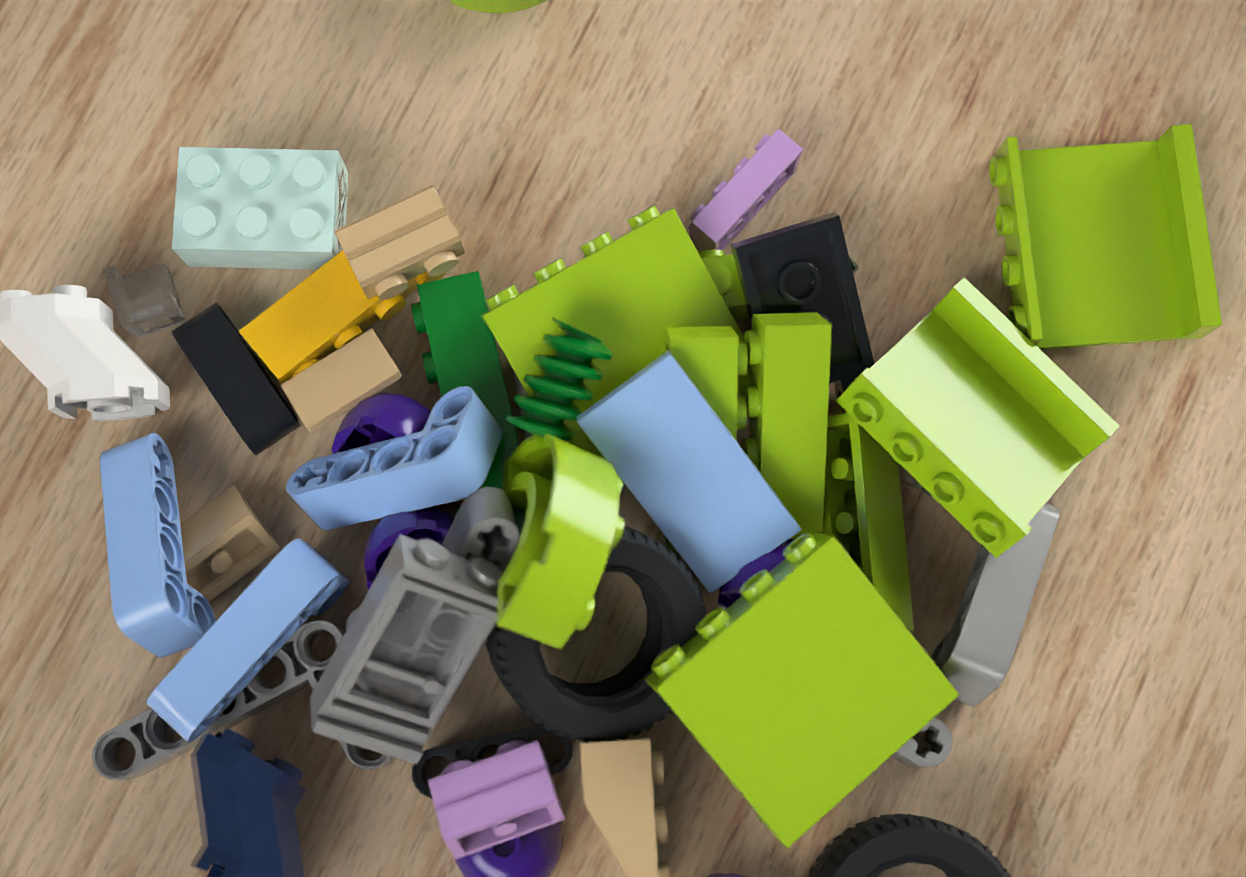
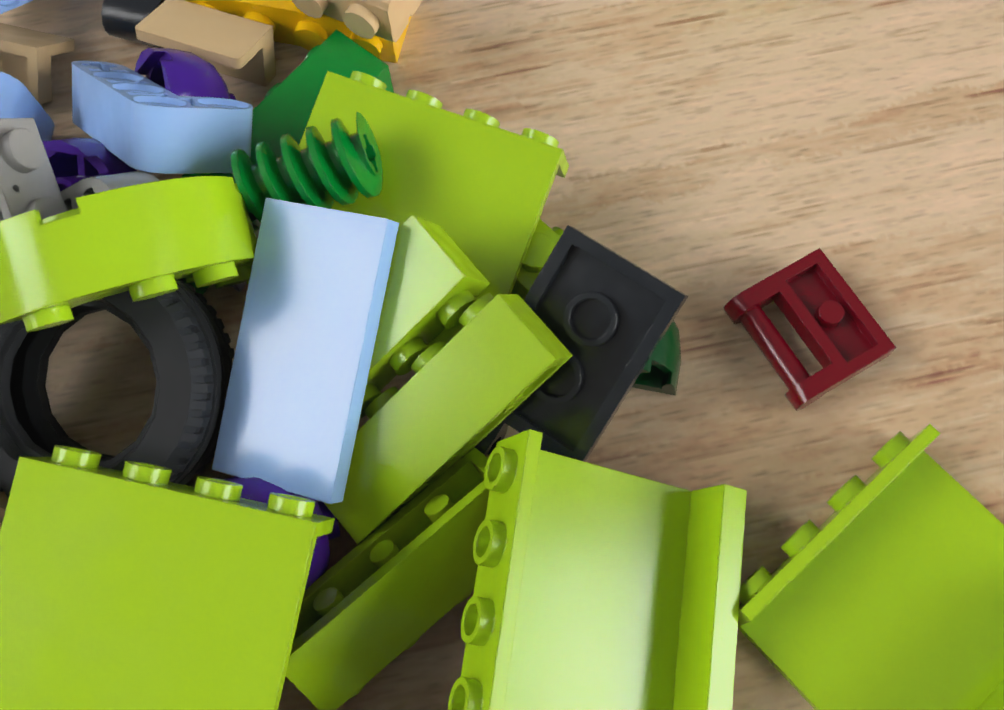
camera: 60 degrees right, 10 degrees down
(746, 193) = (659, 231): lavender piece -> none
(883, 135) = (824, 316): none -> dark red plate

